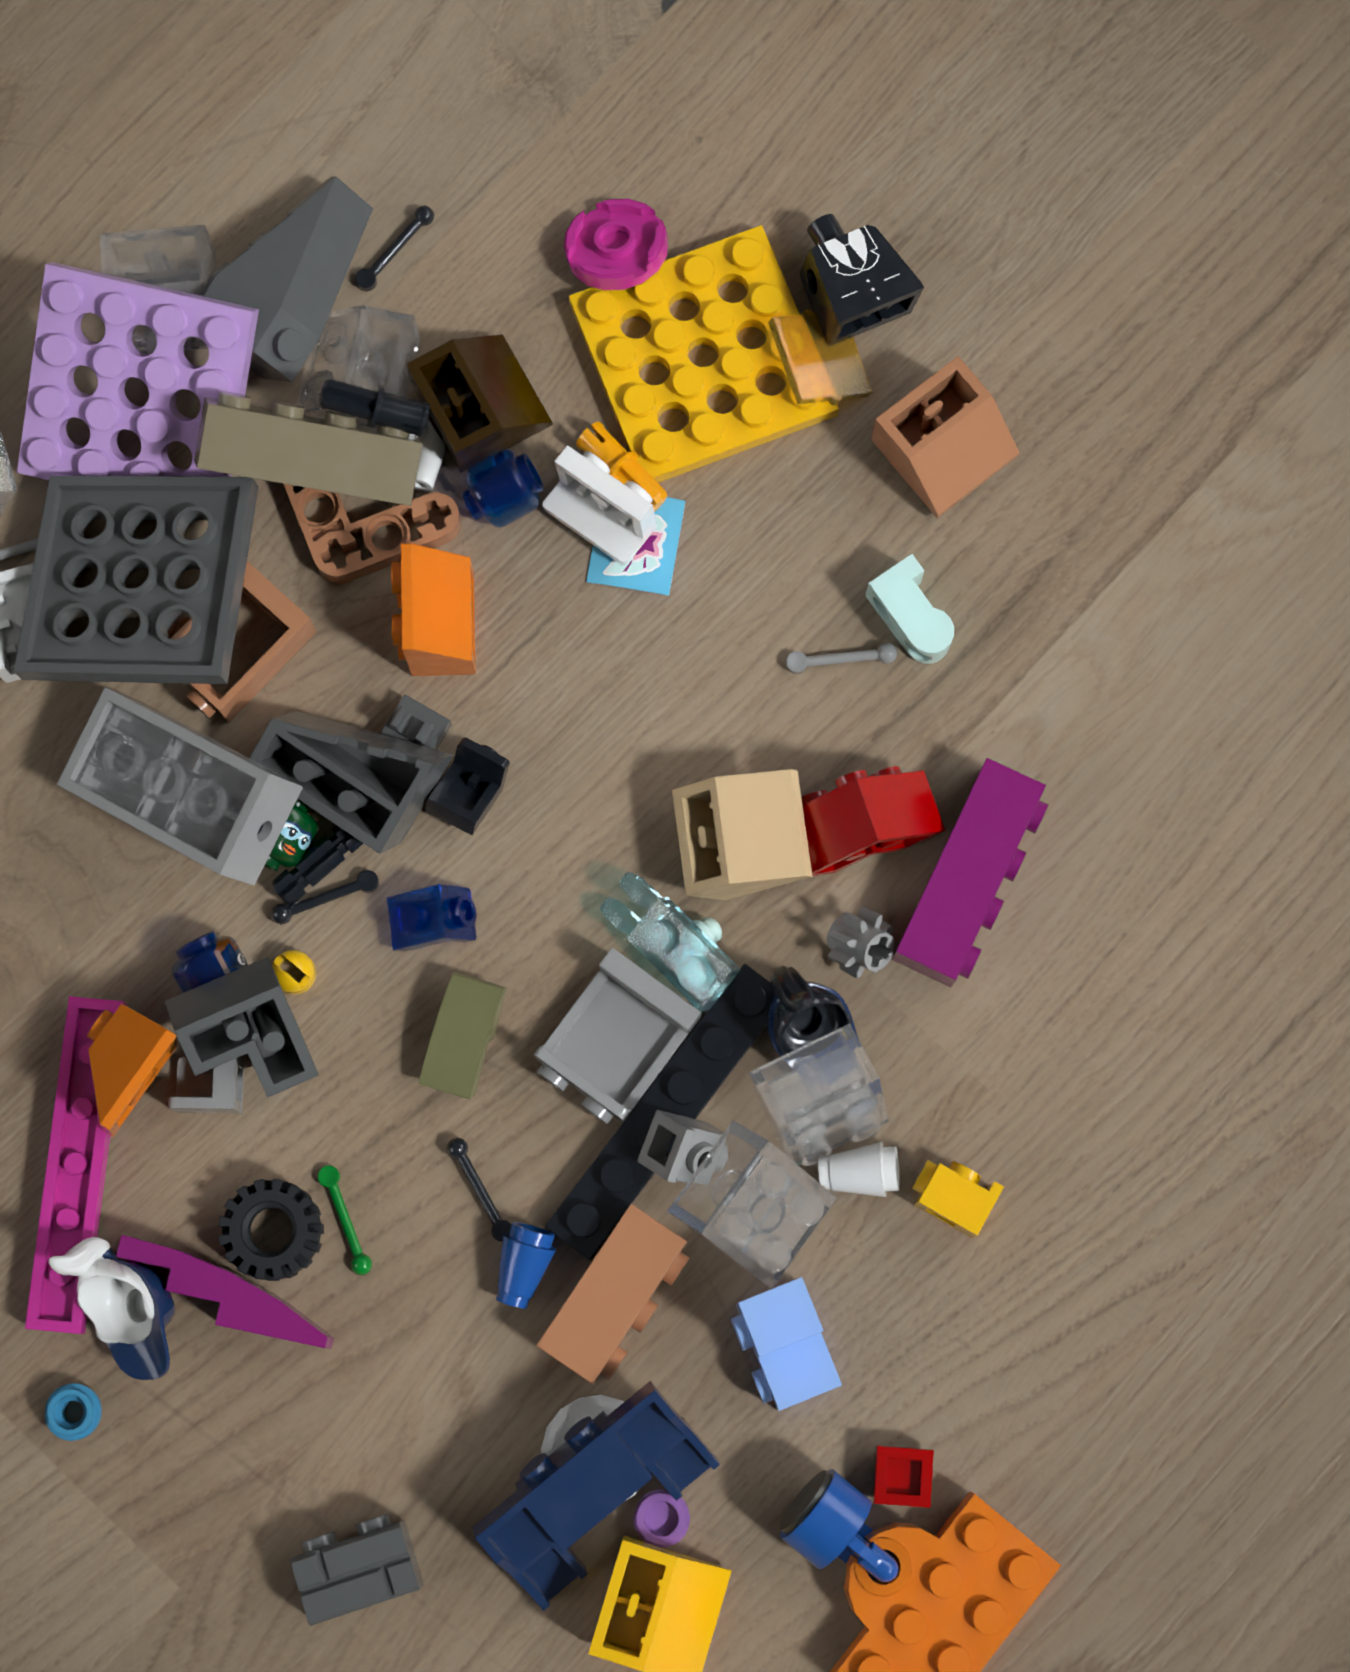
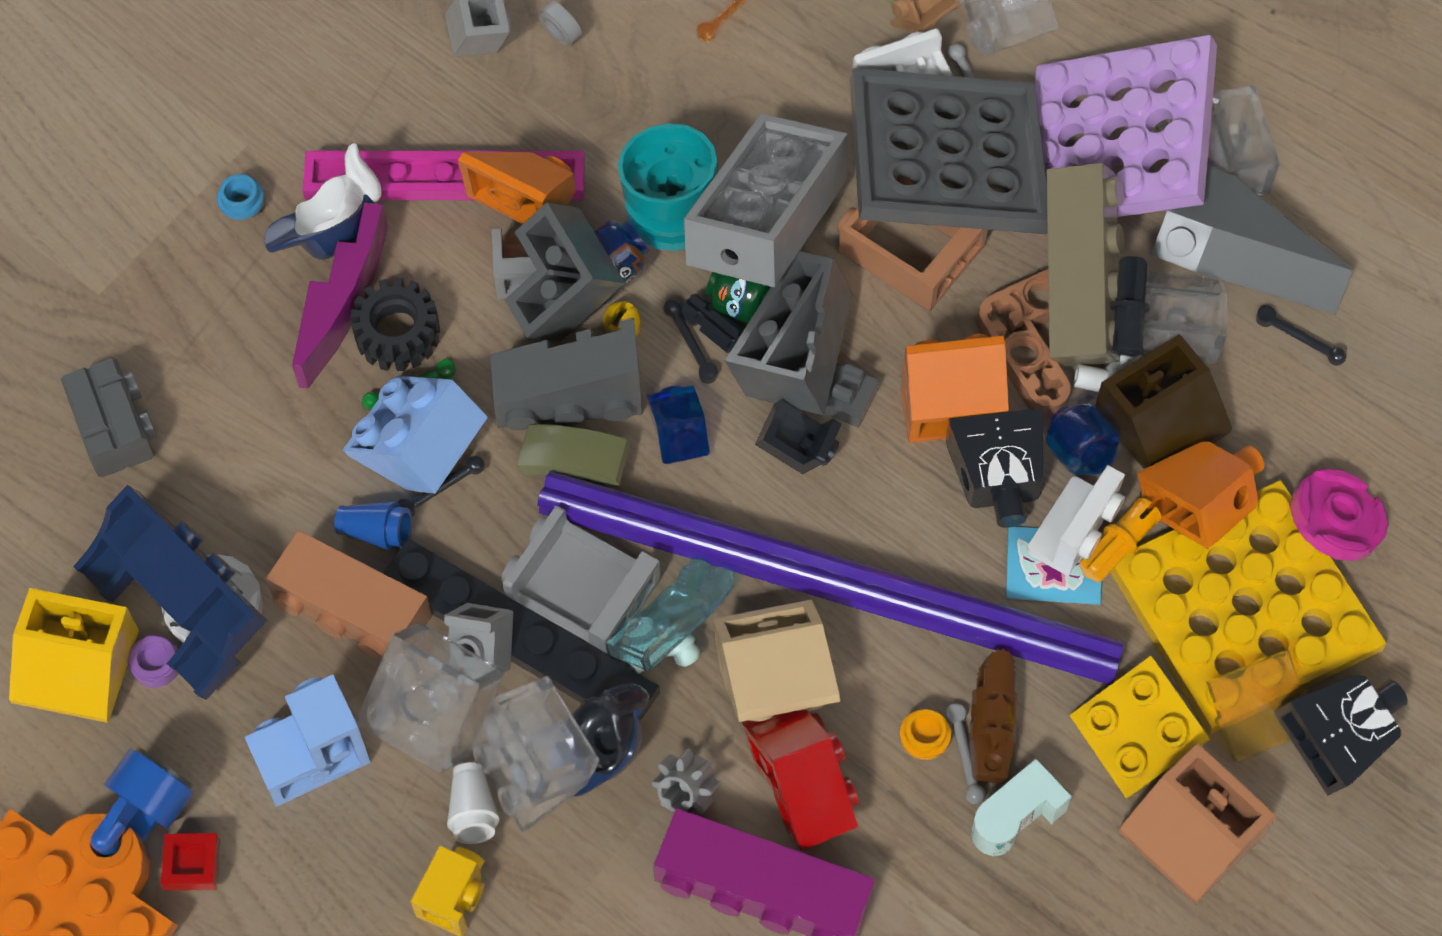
camera: 85 degrees right, 15 degrees down
(111, 889) = (663, 178): none -> teal wheel
(375, 1033) = (569, 381): none -> dark grey wedge
(416, 1211) = (416, 432): none -> light blue slope
(520, 577) = (999, 461): none -> black torso
(581, 371) = (1203, 490): none -> orange torso
(632, 780) = (833, 578): none -> dark purple axle
(810, 622) = (993, 718): none -> reddish brown hinge
(819, 694) = (925, 734): none -> light orange plate
(833, 479) = (1139, 727): none -> yellow hinge

